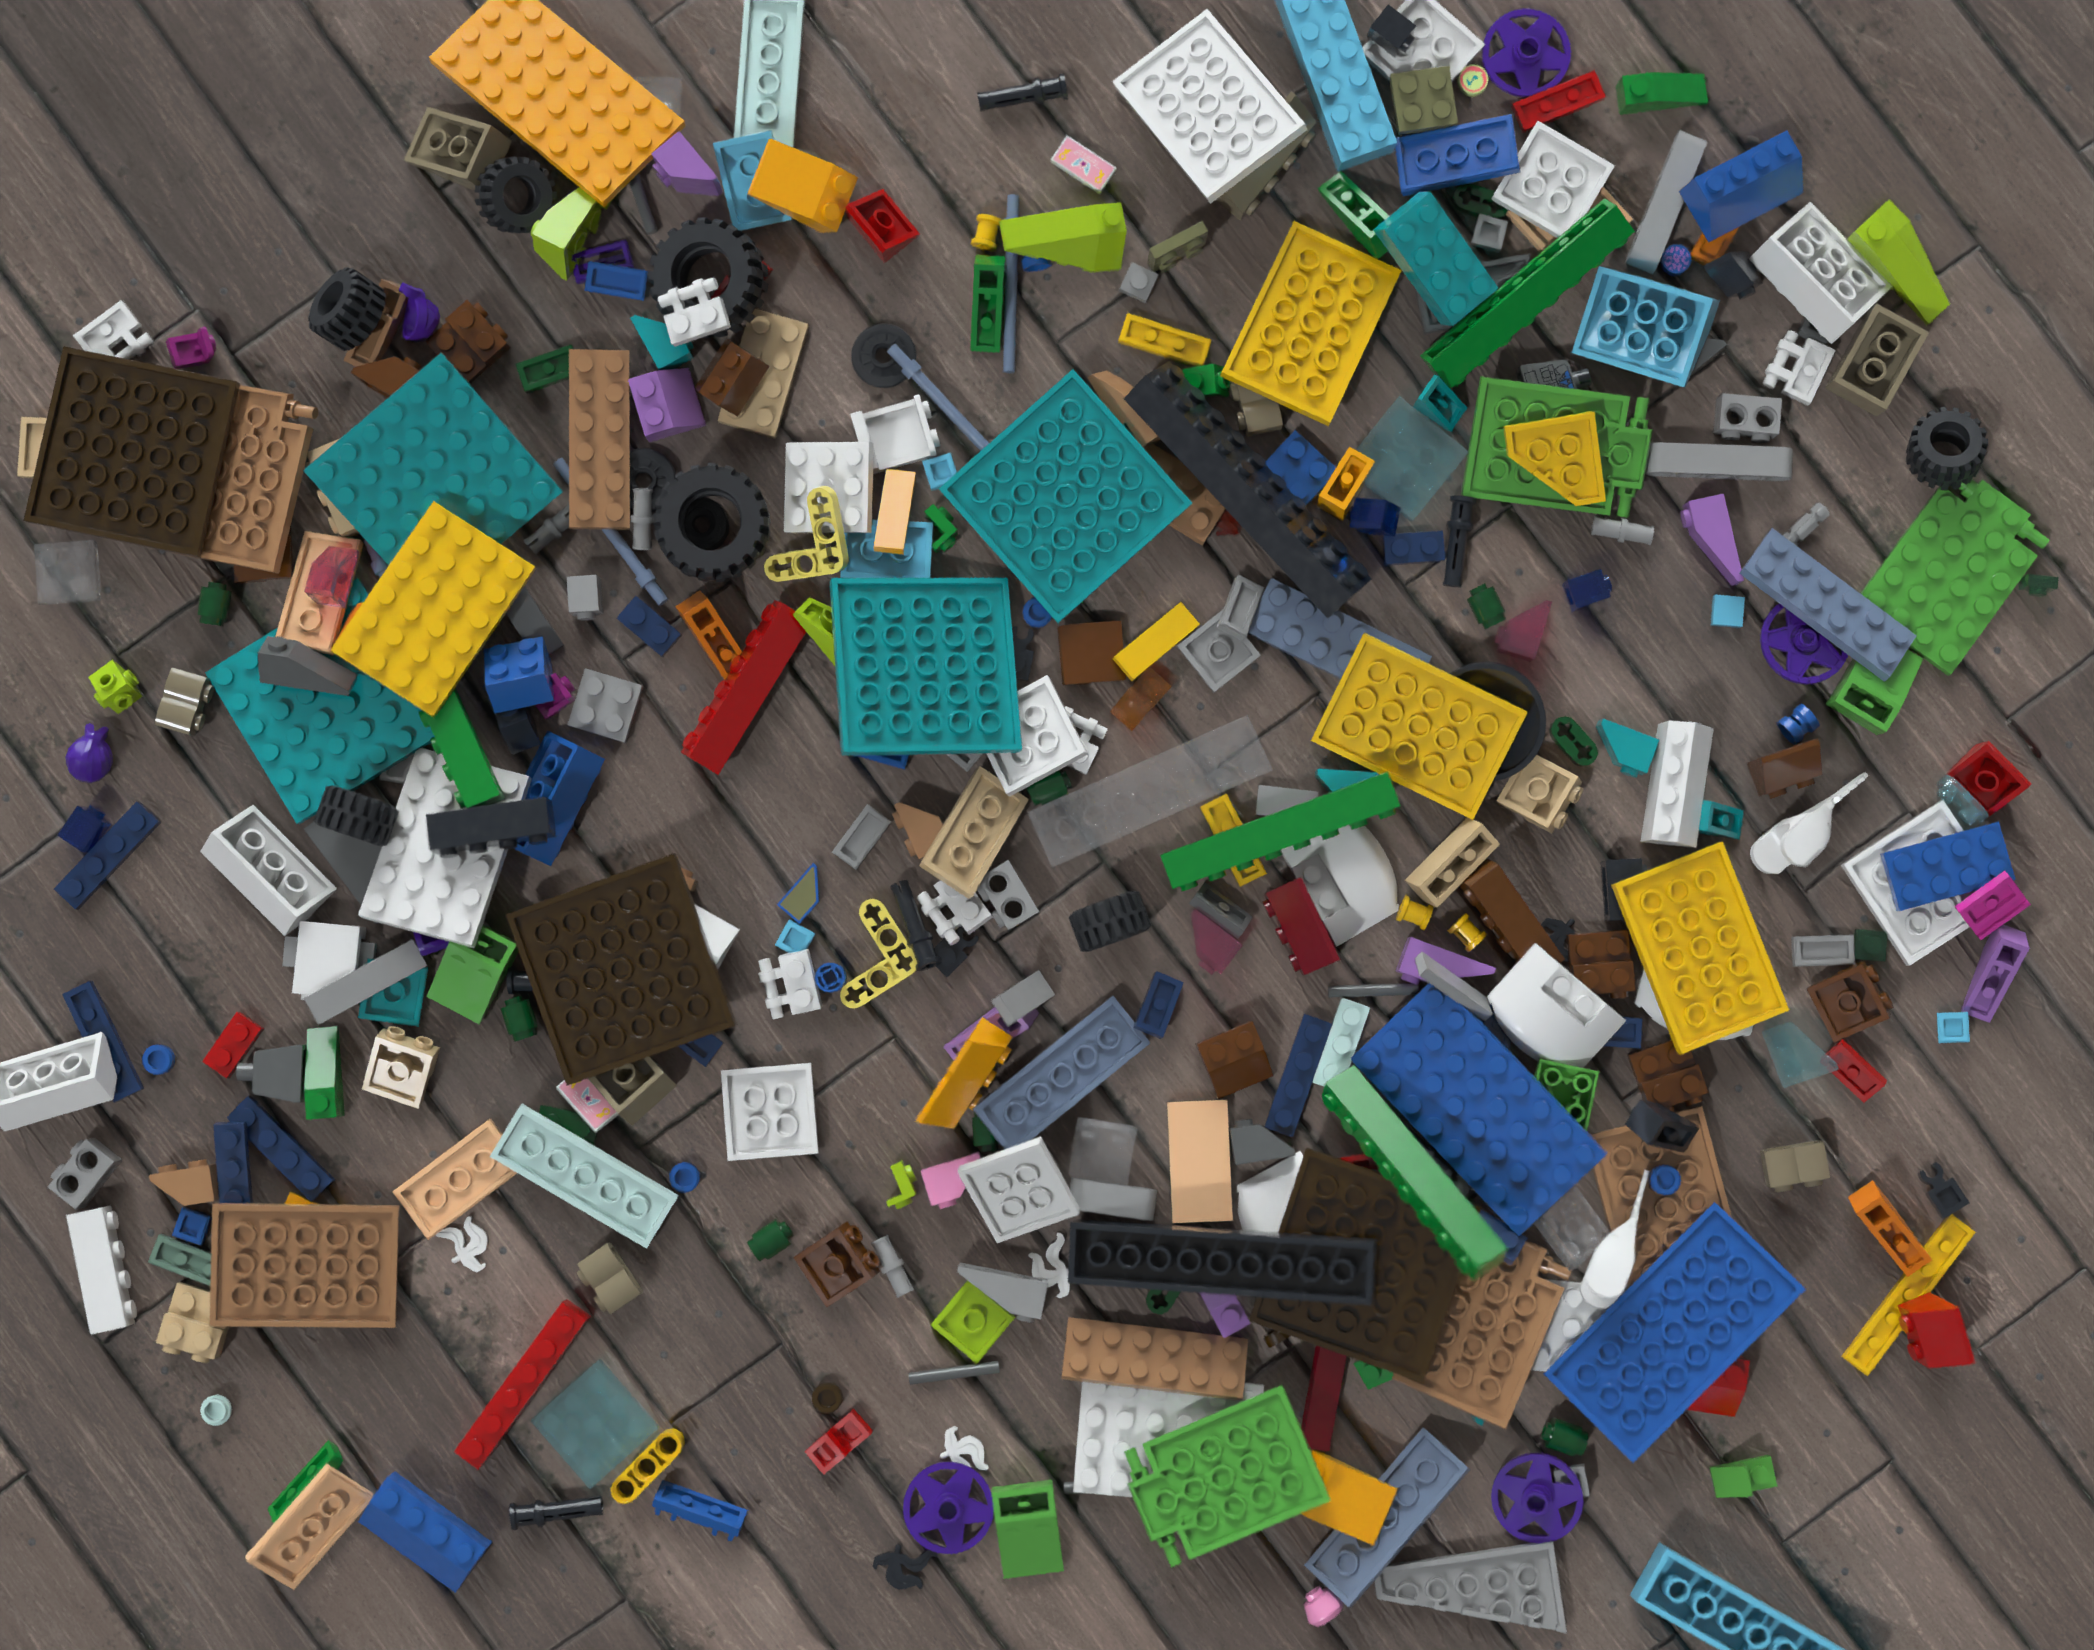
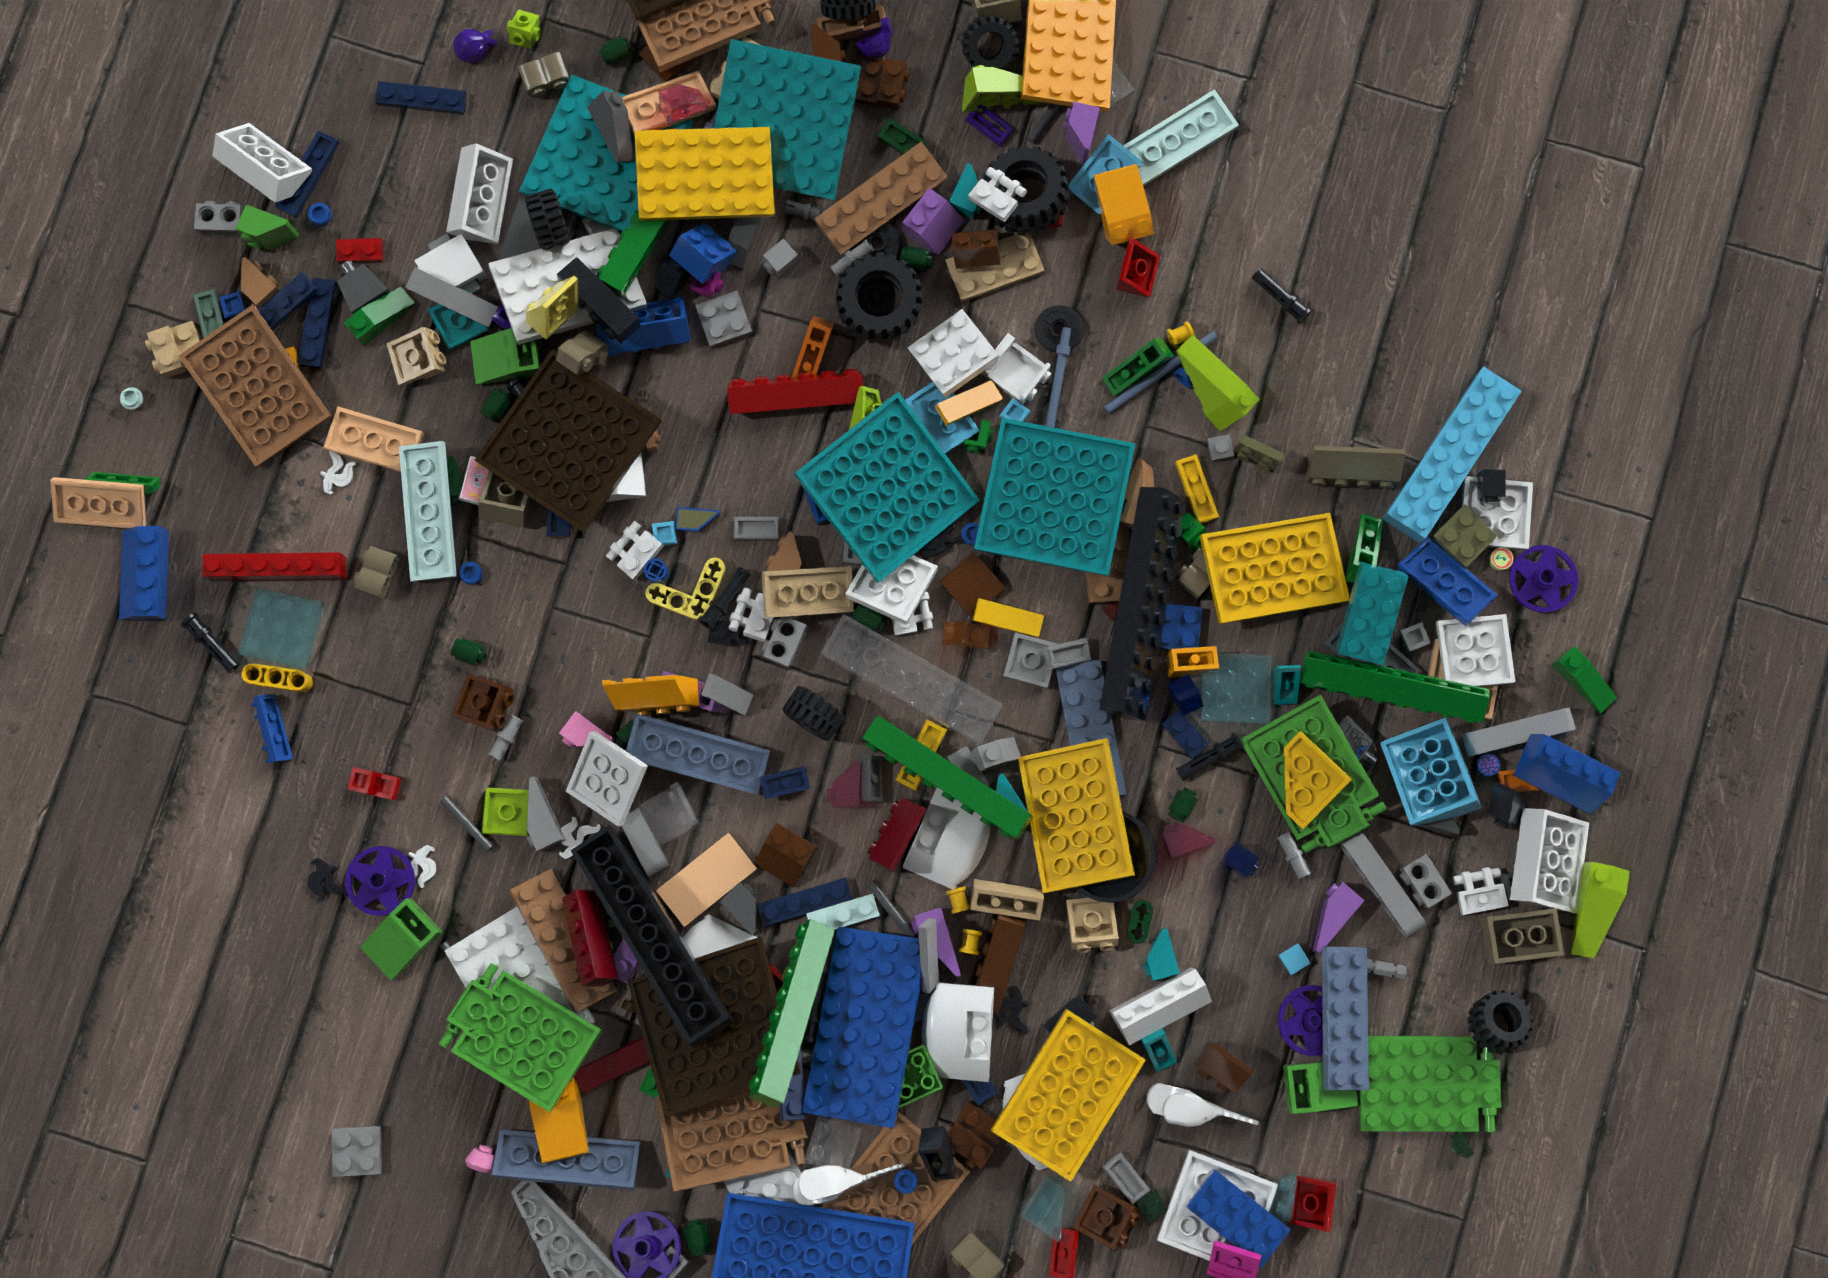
camera: 55 degrees right, 5 degrees down
(84, 827) = (427, 72): clear blue brick -> none
(101, 1269) = (169, 271): white brick -> none
(134, 1132) = (264, 229): none -> bright green slope
(465, 880) = (554, 307): none -> light yellow slope
(536, 884) = (582, 352): none -> dark tan brick
(616, 280) = (984, 139): blue tile -> none
(645, 577) = (818, 285): sand blue bar -> none
(649, 626) = (790, 310): dark blue plate -> none
(693, 450) = (917, 258): none -> dark green brick
(769, 1111) = (547, 594): white plate -> none
(820, 554) = (908, 376): light yellow beam -> none
(827, 1397) = (396, 757): dark brown tile -> none
(905, 1177) = (565, 705): lime bracket -> none
(1083, 164) = (1266, 362): bright pink tile -> none
(1176, 1329) = (589, 938): none -> dark red brick
(1209, 106) = (1358, 408): white plate -> none
(1291, 761) = (995, 754): none -> light grey slope
(1475, 208) = (1422, 616): dark green beam -> none
(1559, 101) = (1529, 620): red plate -> none
(1602, 961) = (1014, 1041): reddish brown plate -> none
(1798, 724) = (1256, 1055): blue wheel -> none

